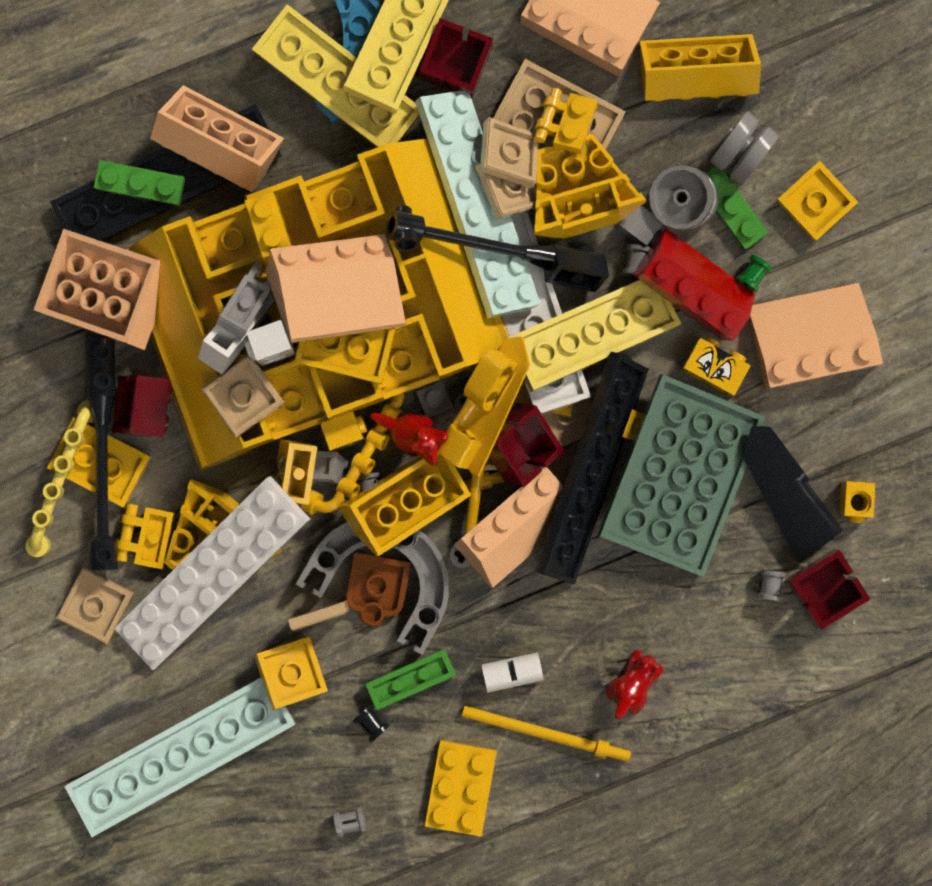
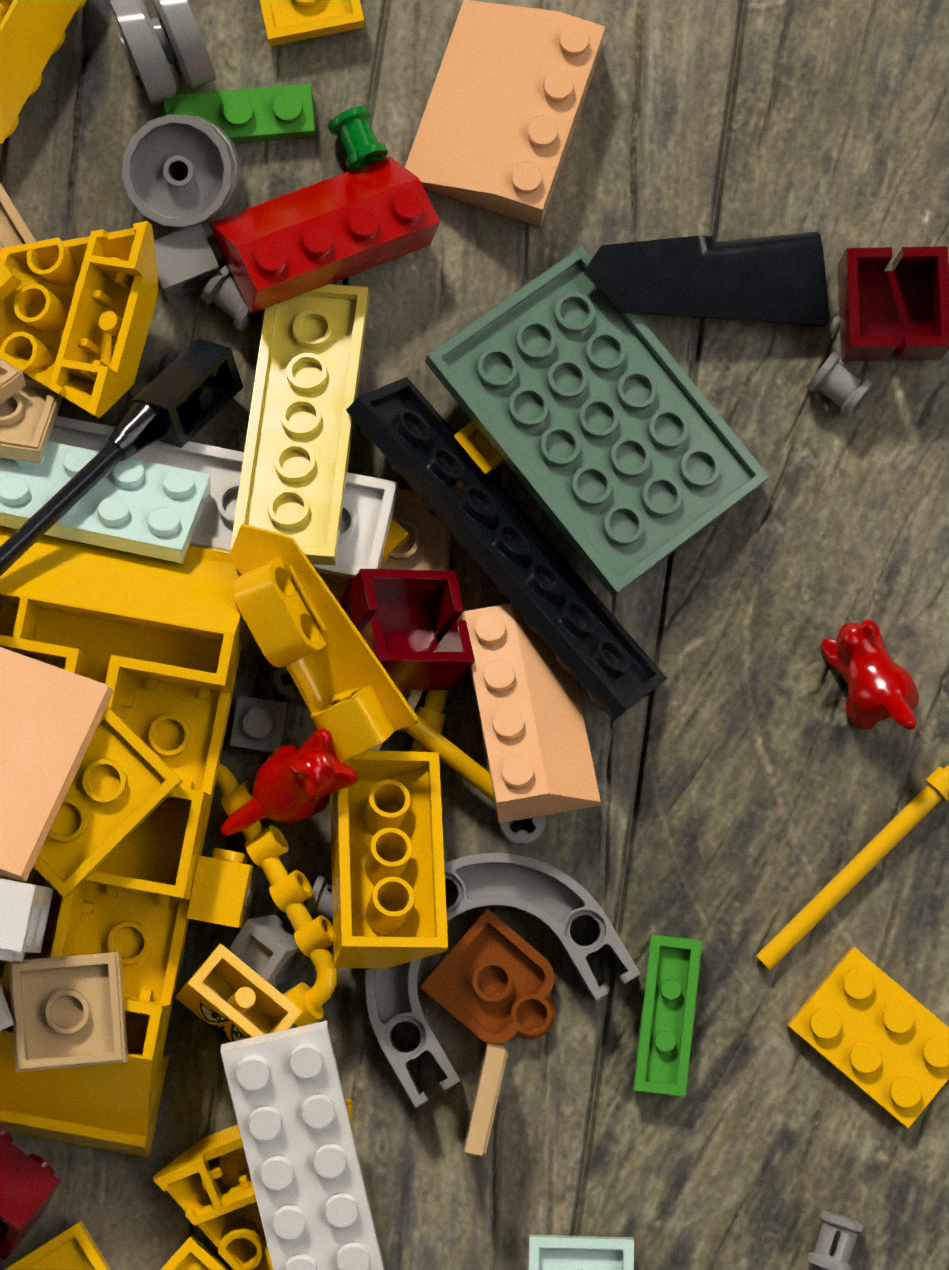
camera: 60 degrees left, 5 degrees down
(290, 673) = (549, 1198): yellow plate -> none
(371, 723) = (700, 1117): black bush -> none
(512, 672) = (747, 850): white pin -> none
(716, 366) = (463, 274): yellow brick -> none
(867, 493) = (785, 165): yellow brick -> none

